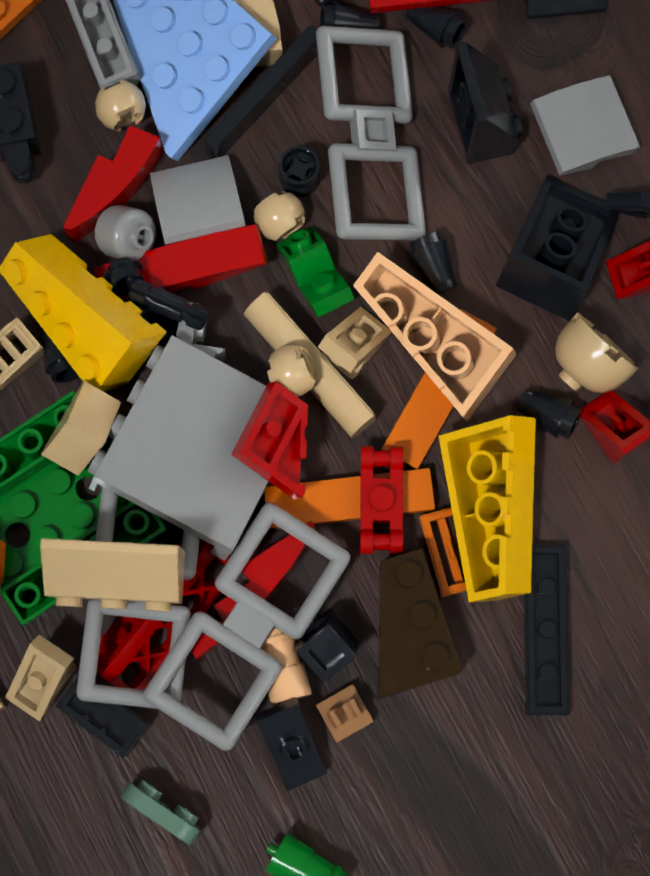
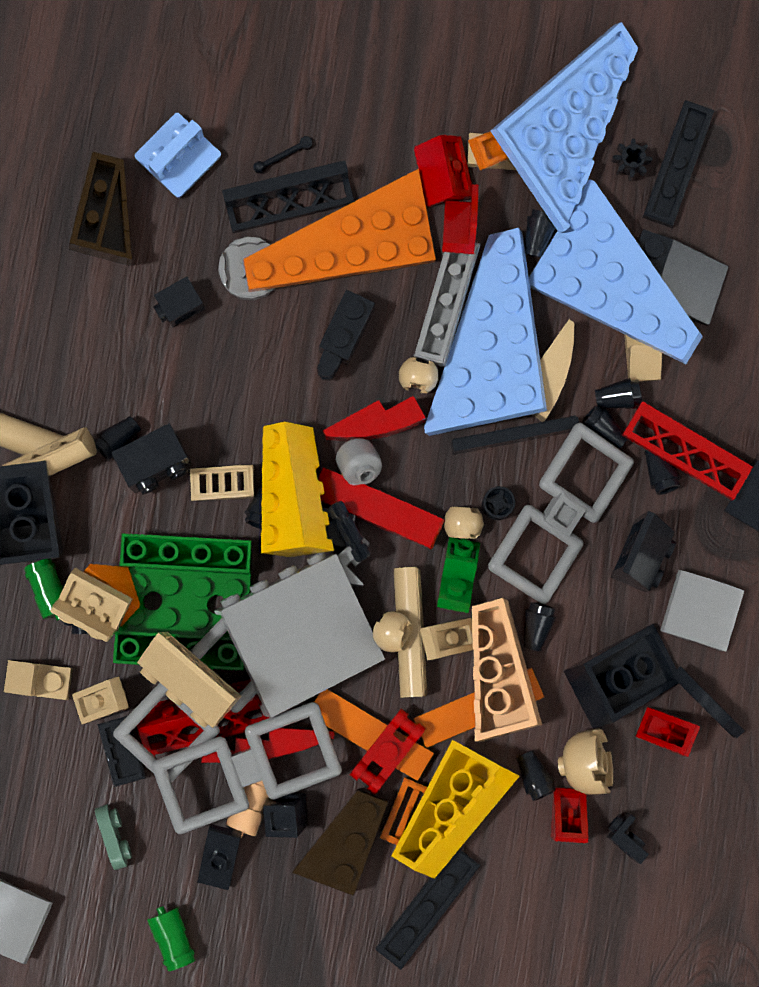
camera: 35 degrees right, 5 degrees up
(82, 429) = (238, 571): tan slope -> none
(122, 274) = (337, 490): black plate -> none
(197, 199) = (420, 473): light grey slope -> none
(276, 439) = (349, 668): red wing -> none
(344, 713) = (266, 862): medium nougat tile -> none

